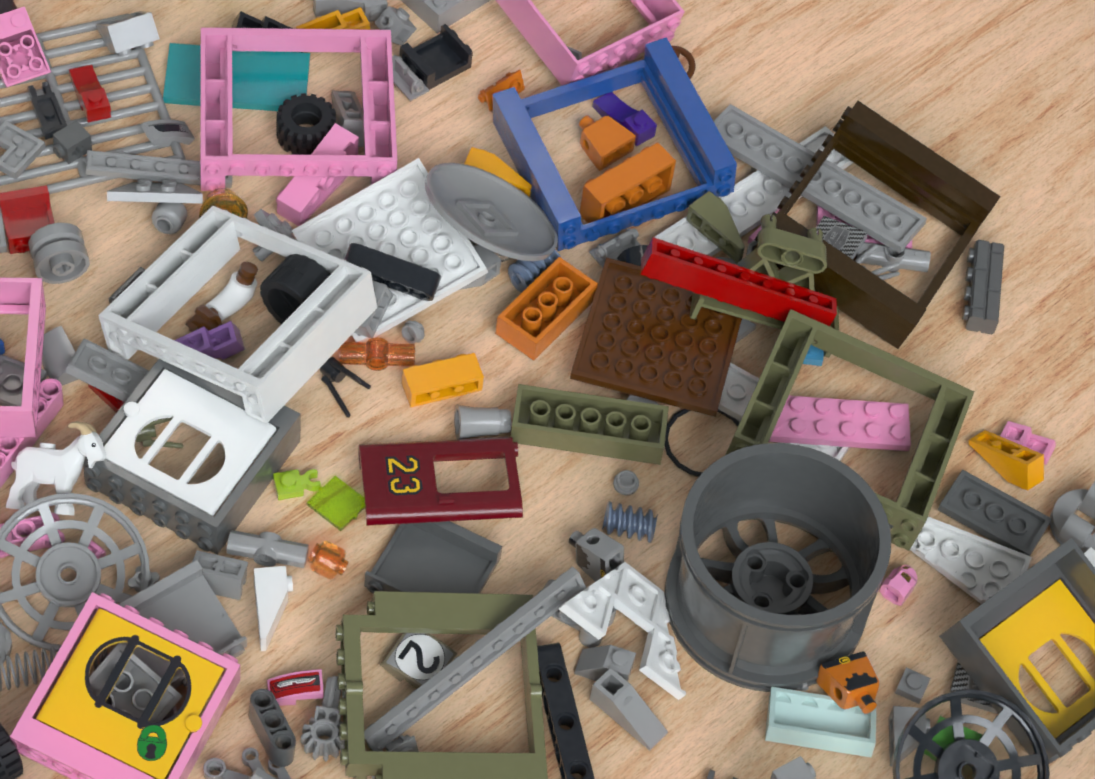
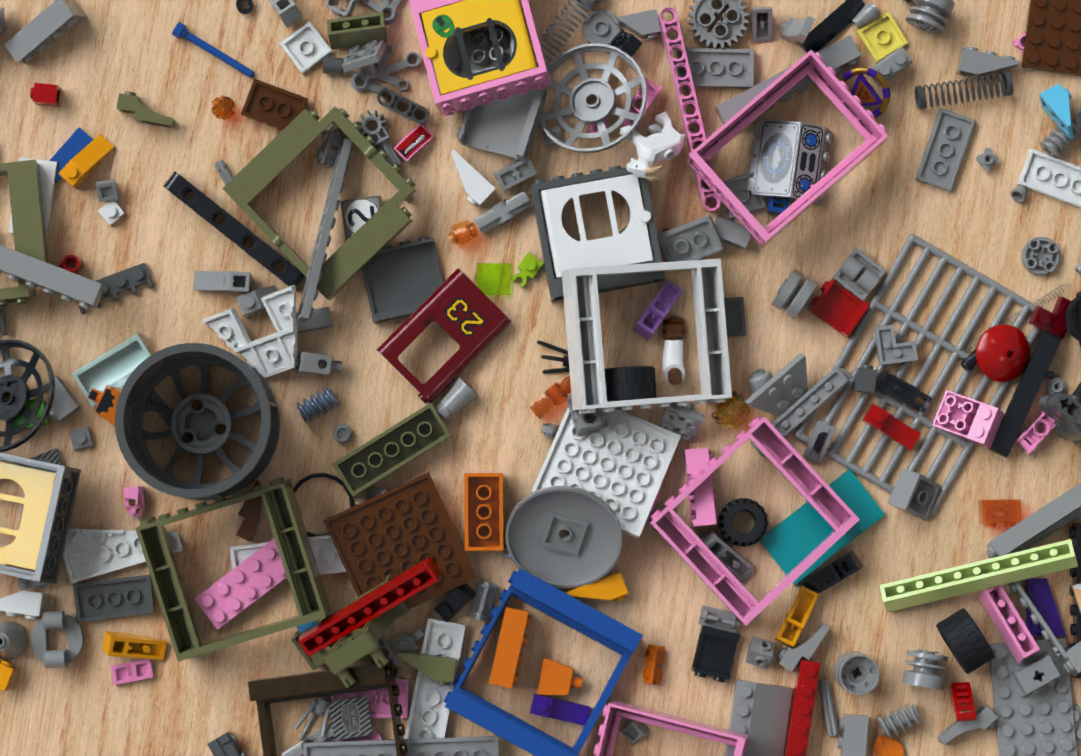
camera: 145 degrees right, 30 degrees up
(395, 272) = (585, 439): black beam -> none
(442, 379) = (504, 410): light orange brick -> none

